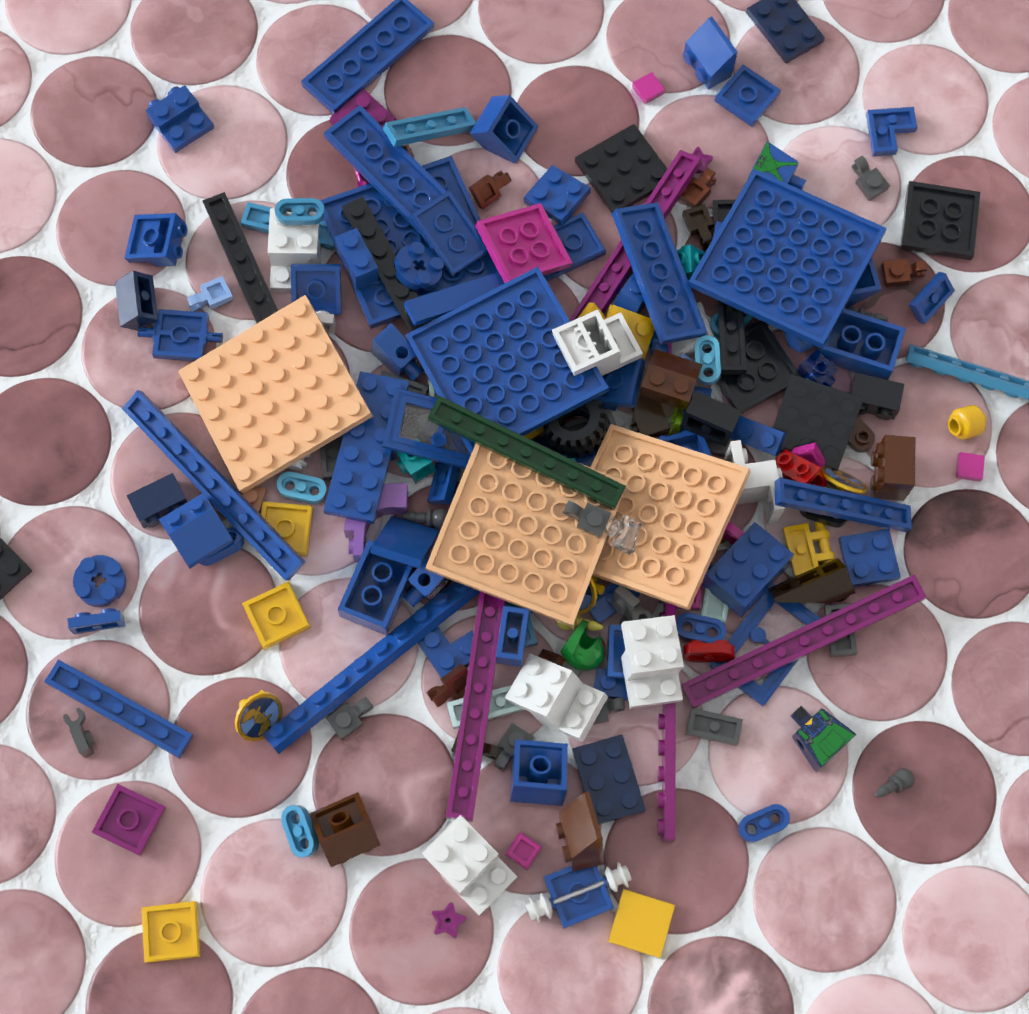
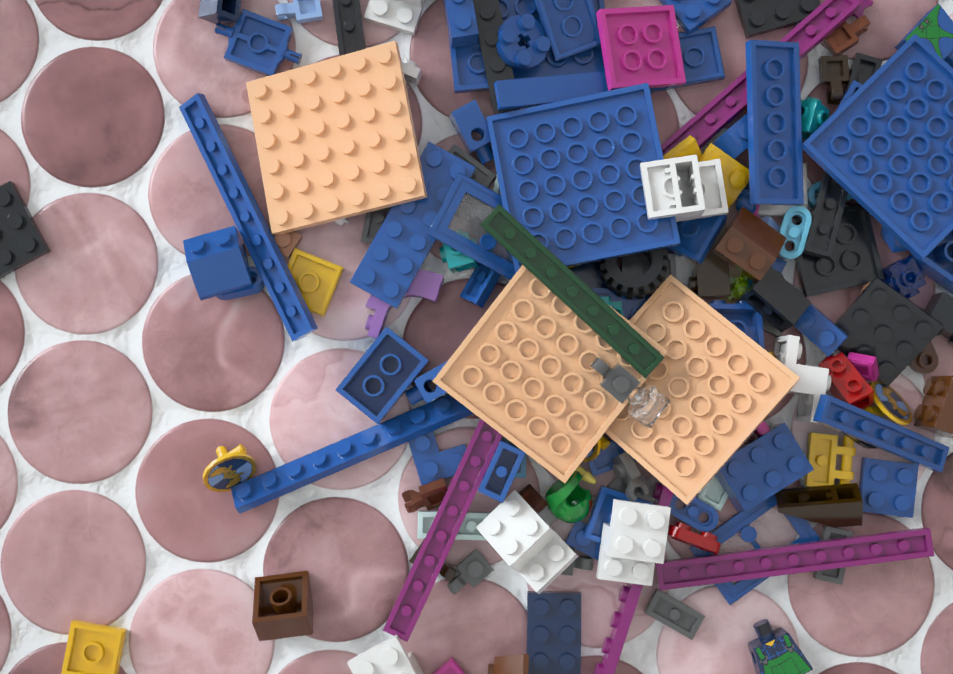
camera: 20 degrees right, 15 degrees up
(82, 738) = (53, 437): dark grey plate -> none
(85, 622) = (87, 322): blue plate -> none
(107, 592) = (97, 287): blue plate -> none
(119, 709) = (97, 420): blue plate -> none
(129, 820) = (80, 533): magenta plate -> none
(156, 500) = (189, 217): dark blue brick -> none
(276, 615) = (276, 370): yellow tile -> none
(299, 832) = (239, 594): dark azure plate -> none
(303, 486) = (339, 244): medium azure plate -> none
(320, 284) = (413, 30): blue plate -> none
(346, 719) = (317, 496): dark grey plate -> none
(404, 542) = (422, 338): blue tile -> none
(433, 518) = (465, 318): dark grey bar -> none
(539, 772) = (488, 609): blue slope -> none

